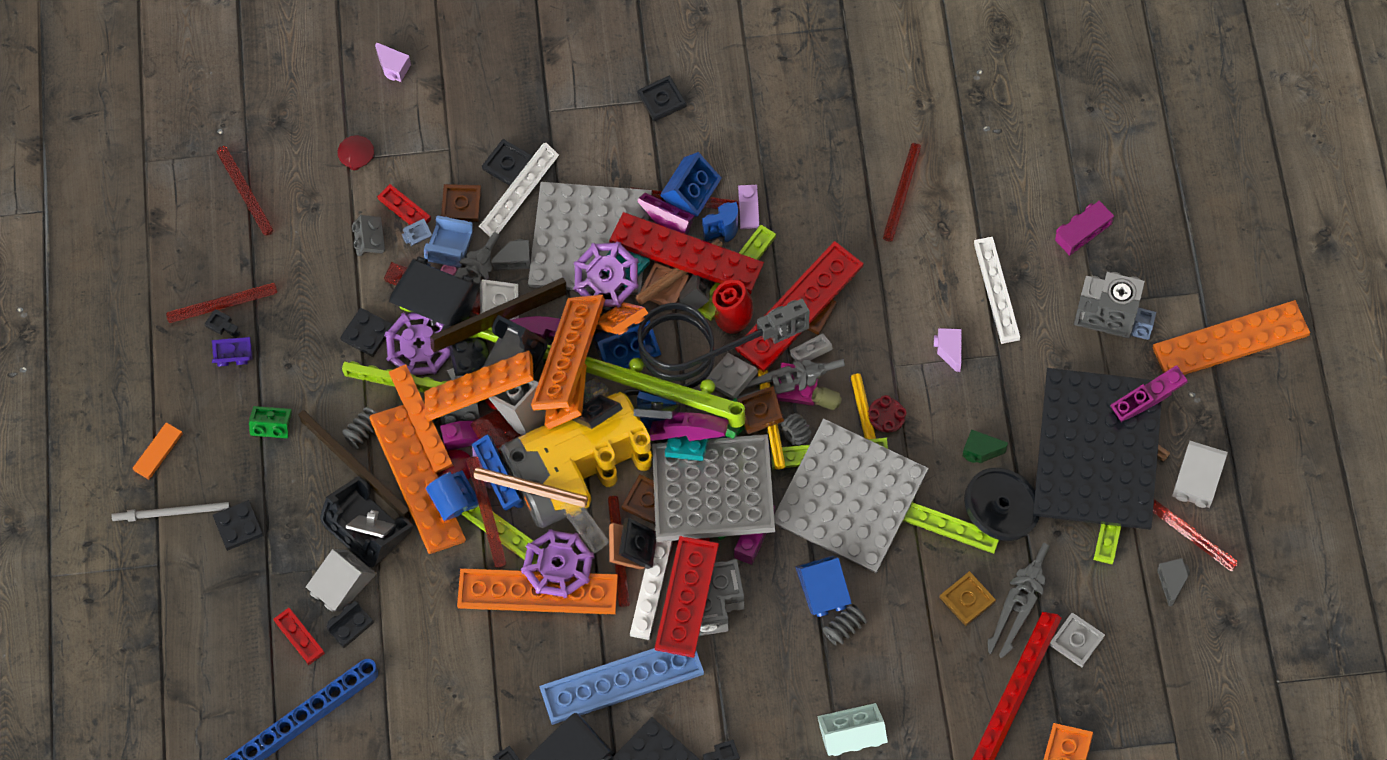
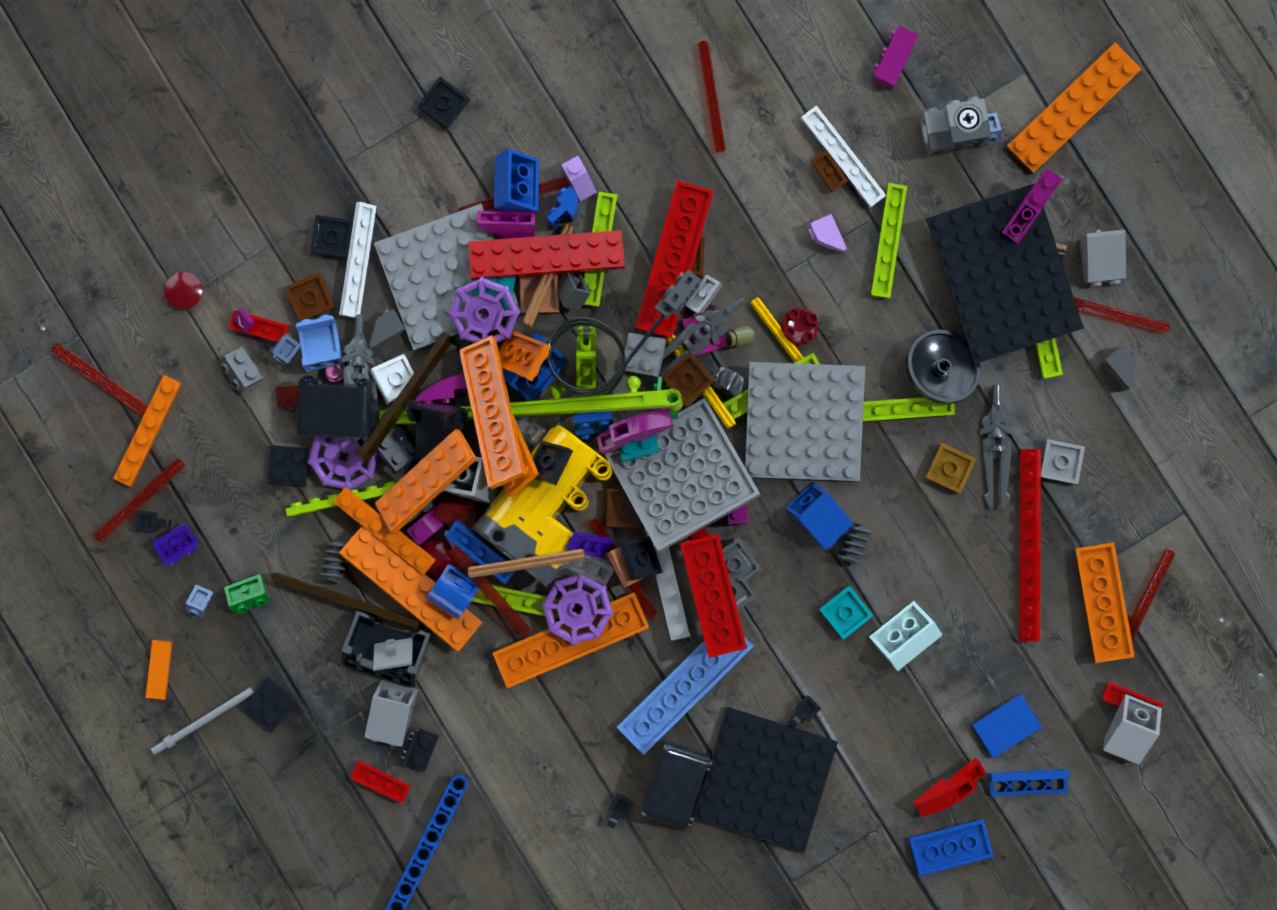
camera: 30 degrees left, 20 degrees up
(224, 408) = (198, 601): none -> sand blue bracket
(261, 250) = (147, 431): none -> orange plate
(393, 62) = (171, 184): lavender slope -> none
(394, 194) = (243, 320): none -> magenta slope
(598, 507) = (591, 544): none -> dark purple plate
(656, 410) = (600, 431): black plate -> none
(680, 348) = (586, 357): none -> lime plate
(732, 306) = (616, 291): red brick -> none
(805, 682) = (846, 612): none -> teal plate
(978, 296) = (829, 171): none -> reddish brown plate
(983, 447) = (898, 319): dark green slope -> none
(1004, 377) = (888, 240): none -> lime plate

